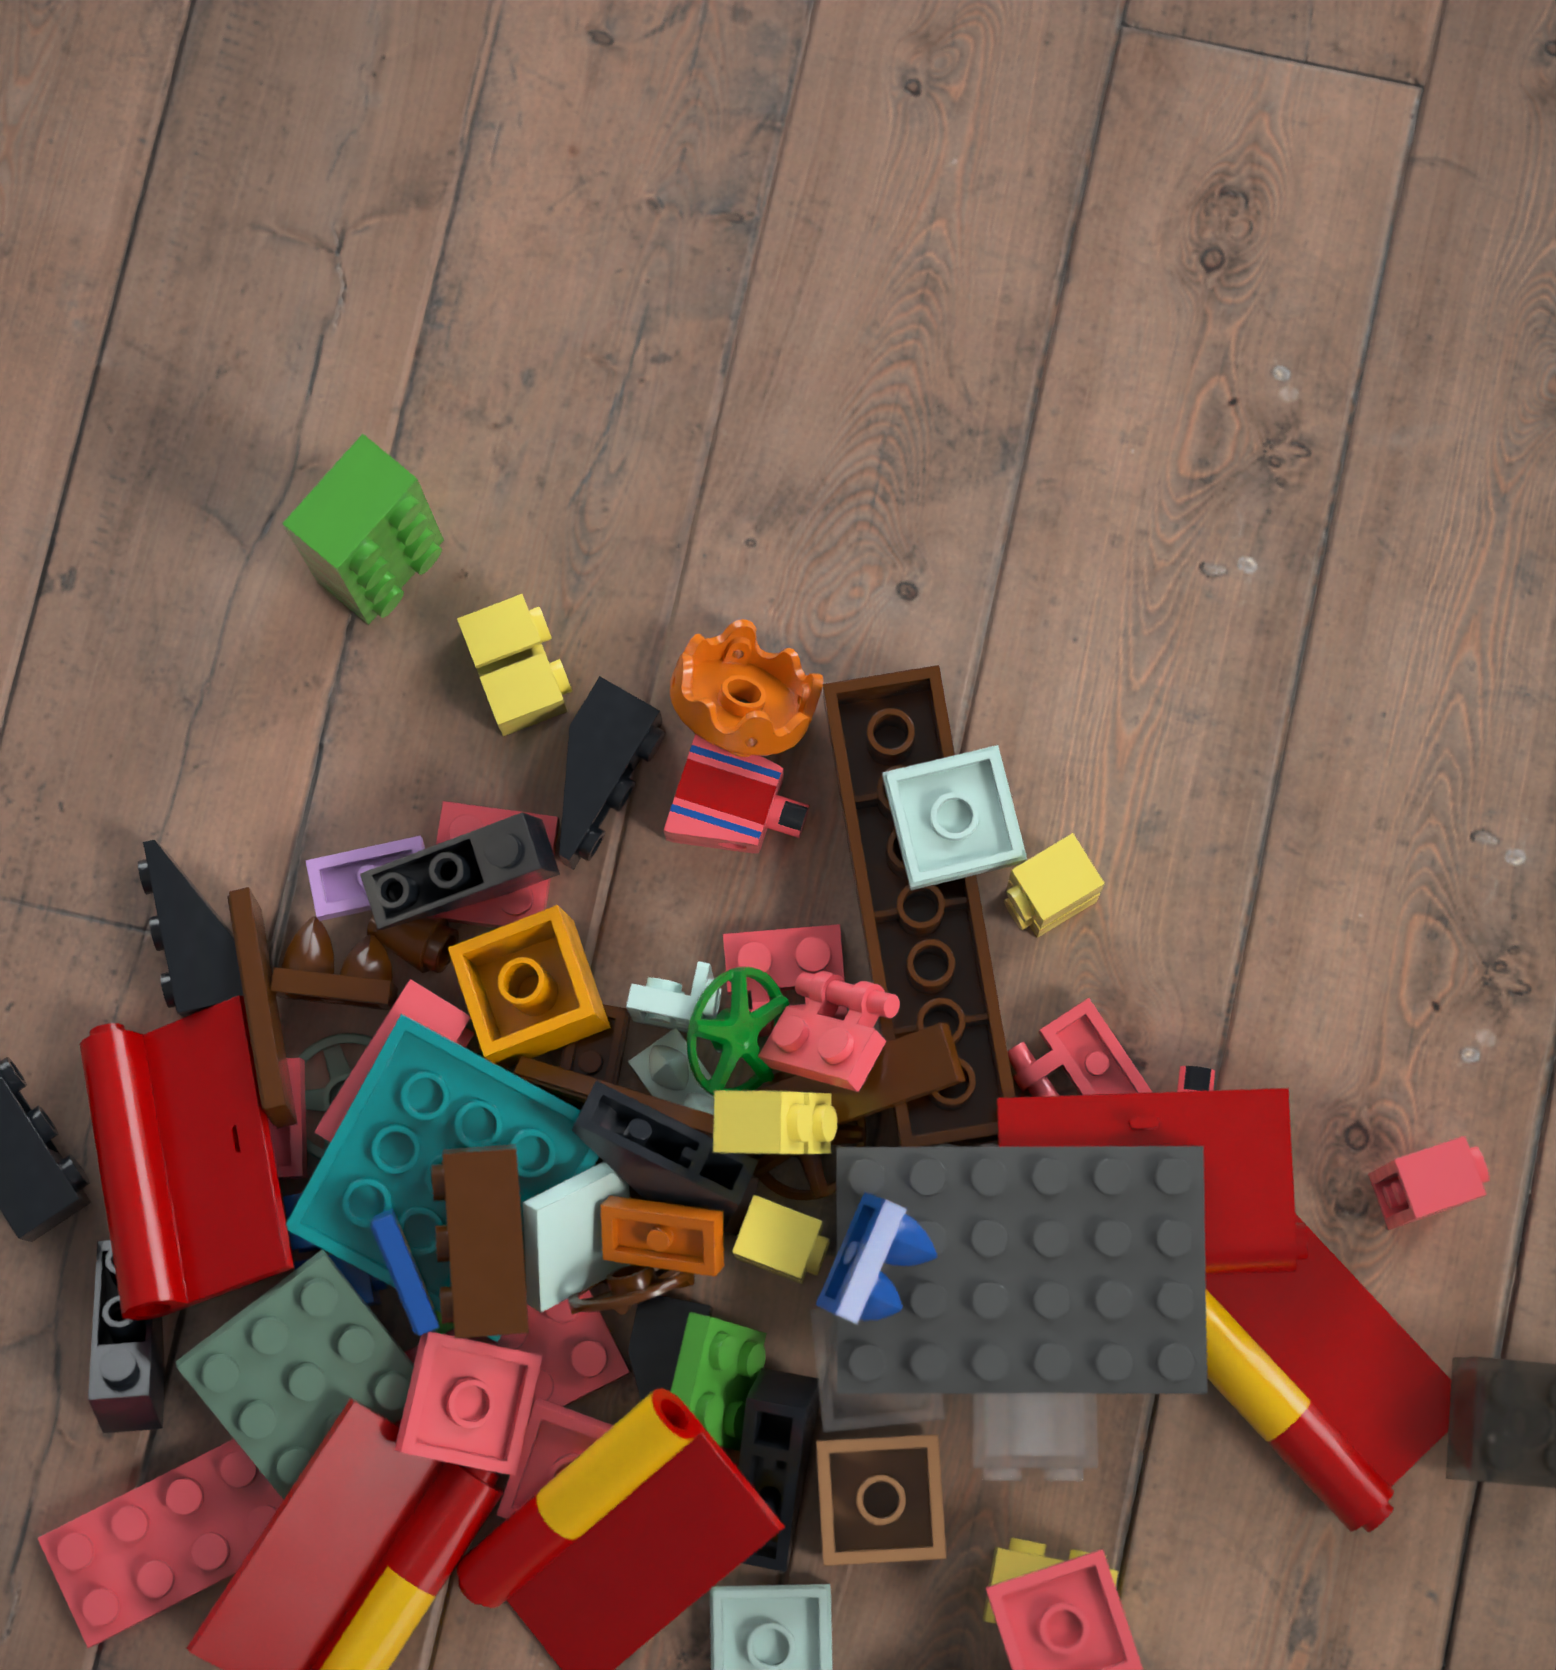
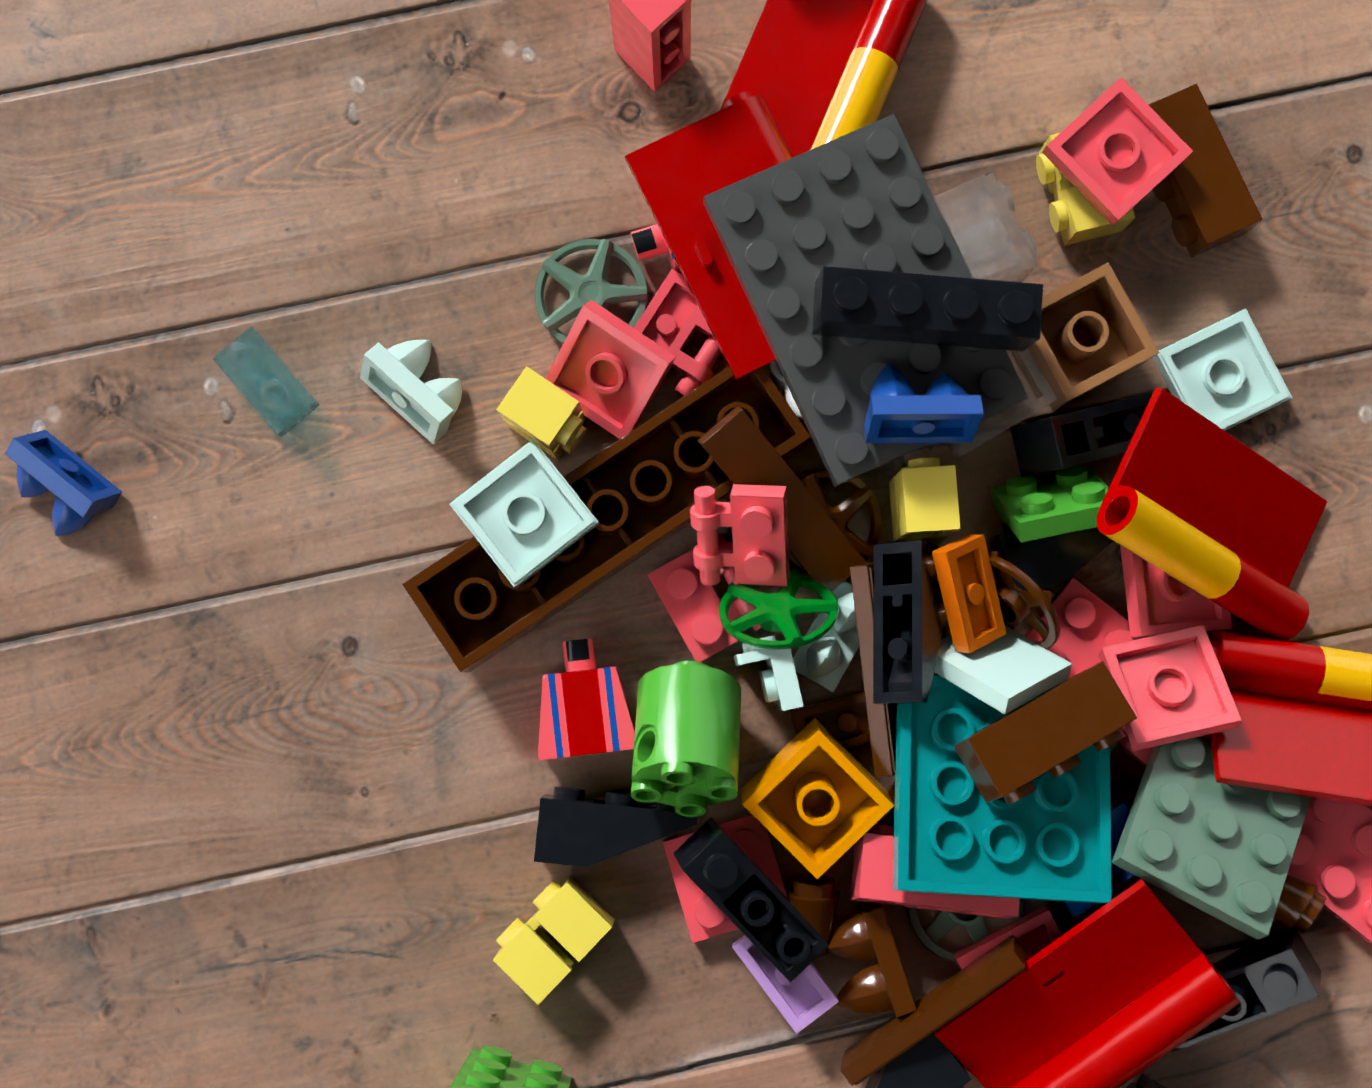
camera: 120 degrees left, 5 degrees up
(190, 1436) = (1298, 904): none -> reddish brown cone
(404, 1272) = (1101, 785): blue tile -> none
(651, 881) = (686, 737): none -> bright green cylinder
(732, 667) = (476, 755): orange plate -> none
(773, 1122) = (843, 543): light yellow piece -> none
(973, 1313) = (927, 309): none -> black brick
(1072, 977) = (610, 369): none -> coral plate
(1169, 756) = (395, 378): none -> light aqua tile
(1169, 1000) = (588, 286): none -> sand green wheel
(1224, 622) = (266, 381): none -> clear light blue tile
(1227, 371) = (52, 466): none -> blue tile

